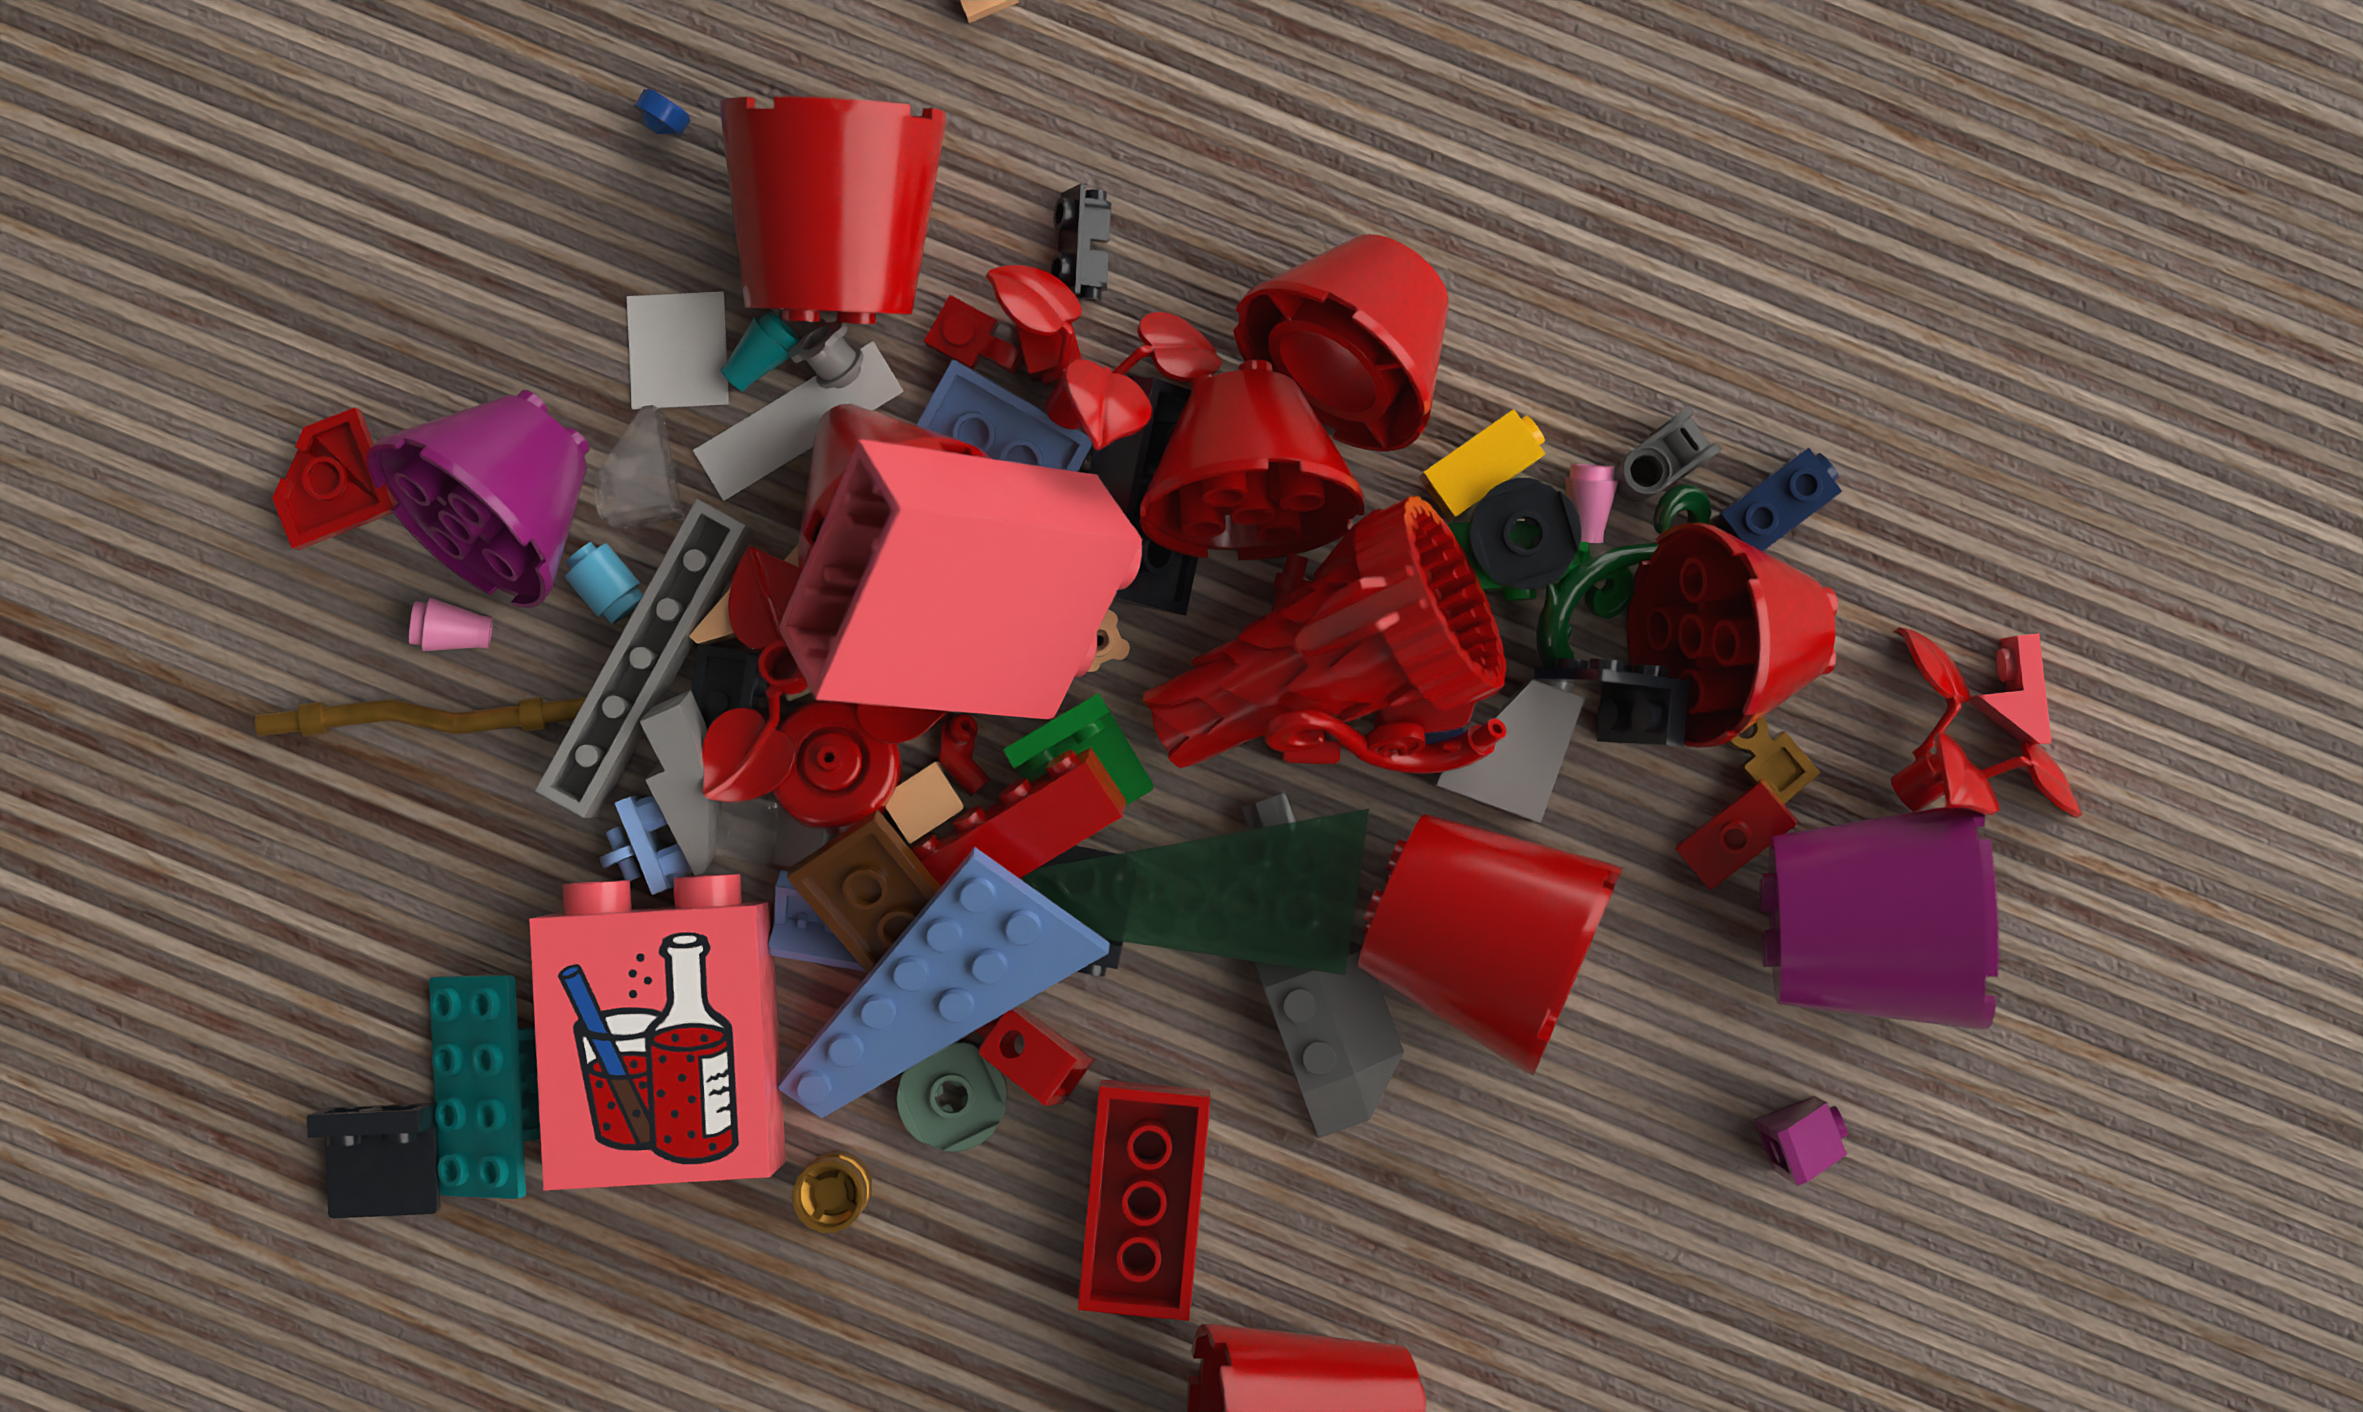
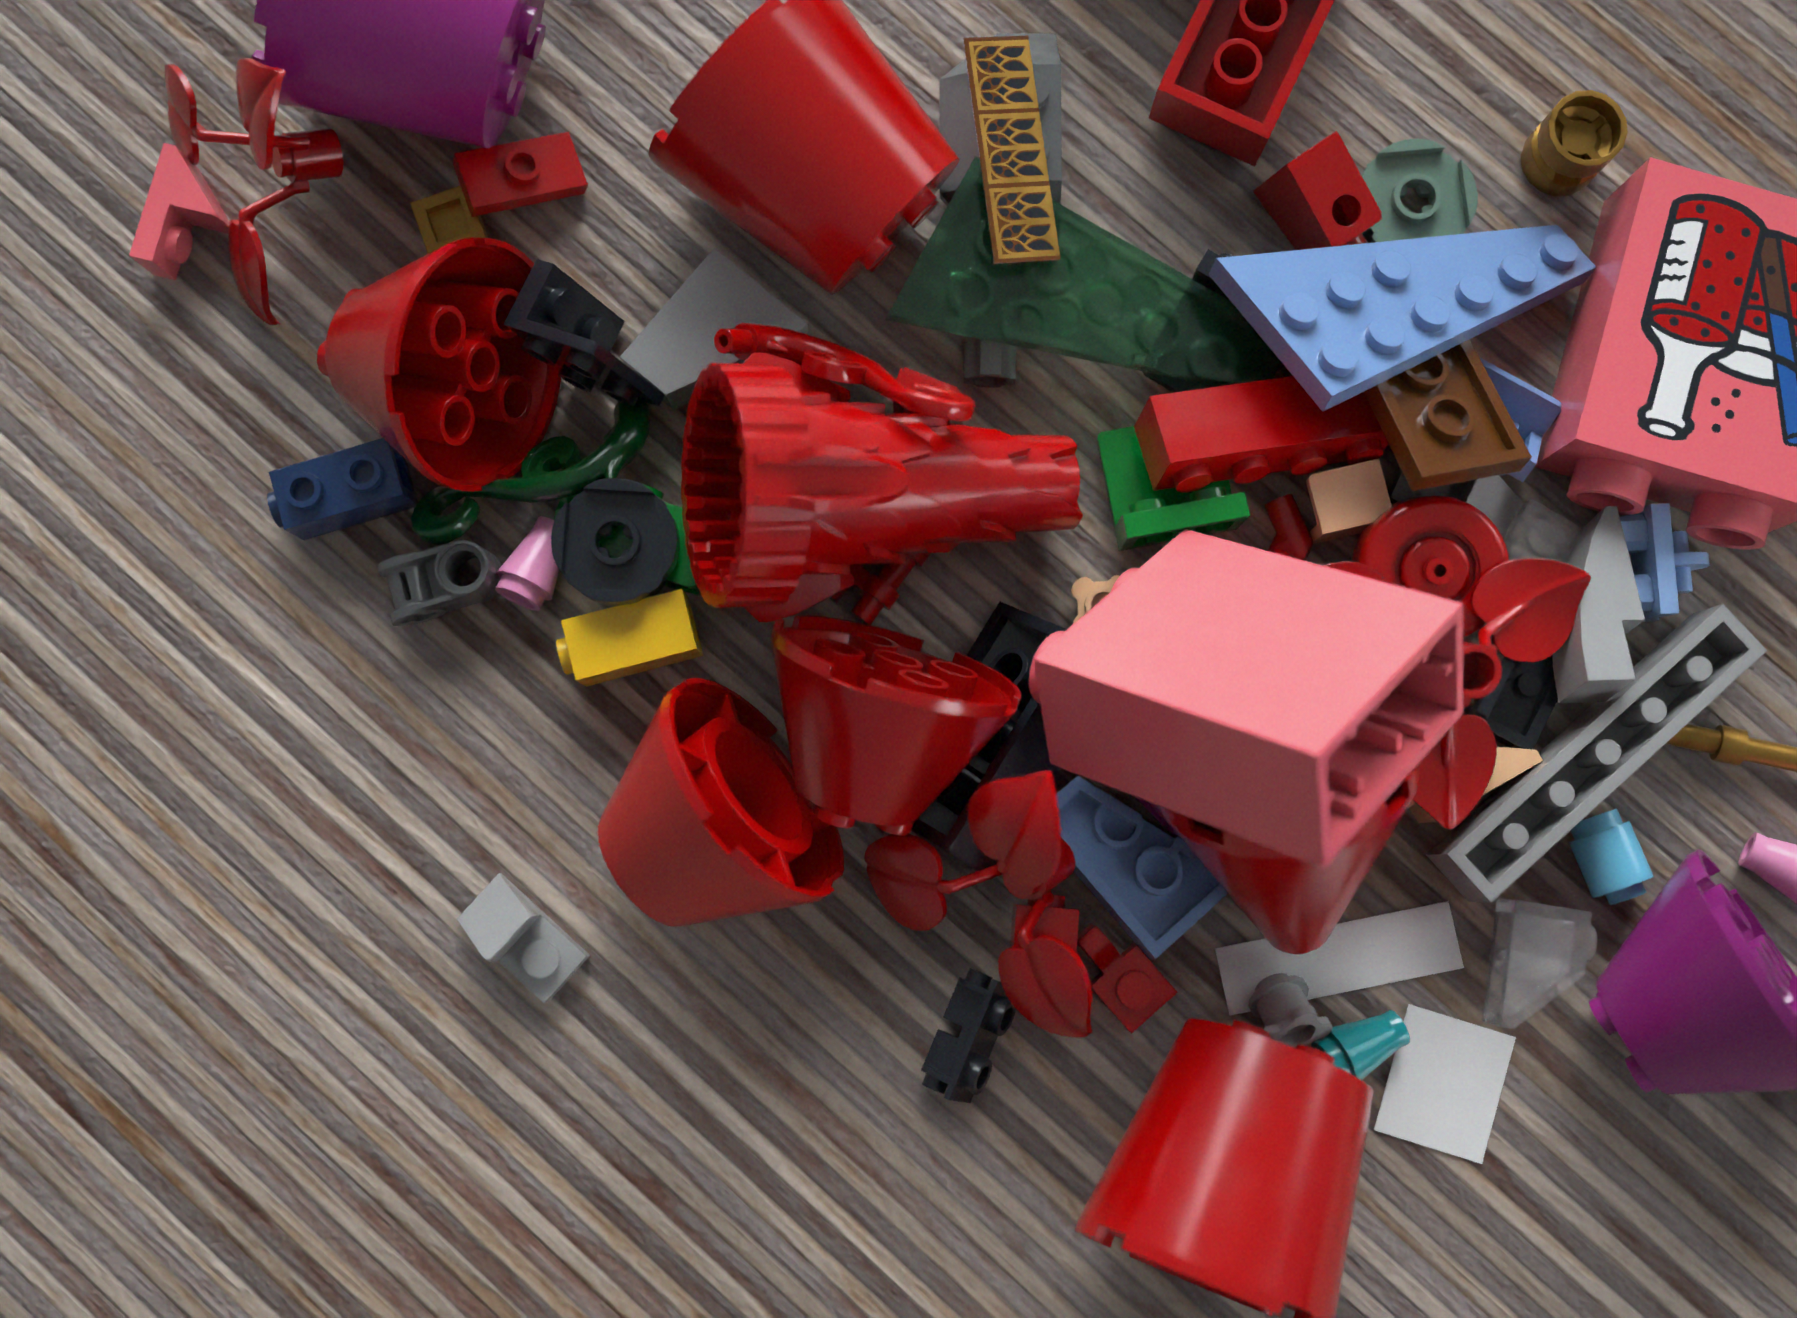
camera: 155 degrees left, 5 degrees down
(1317, 994) = (1011, 149): none -> sticker
(1480, 190) = (522, 938): none -> light grey slope

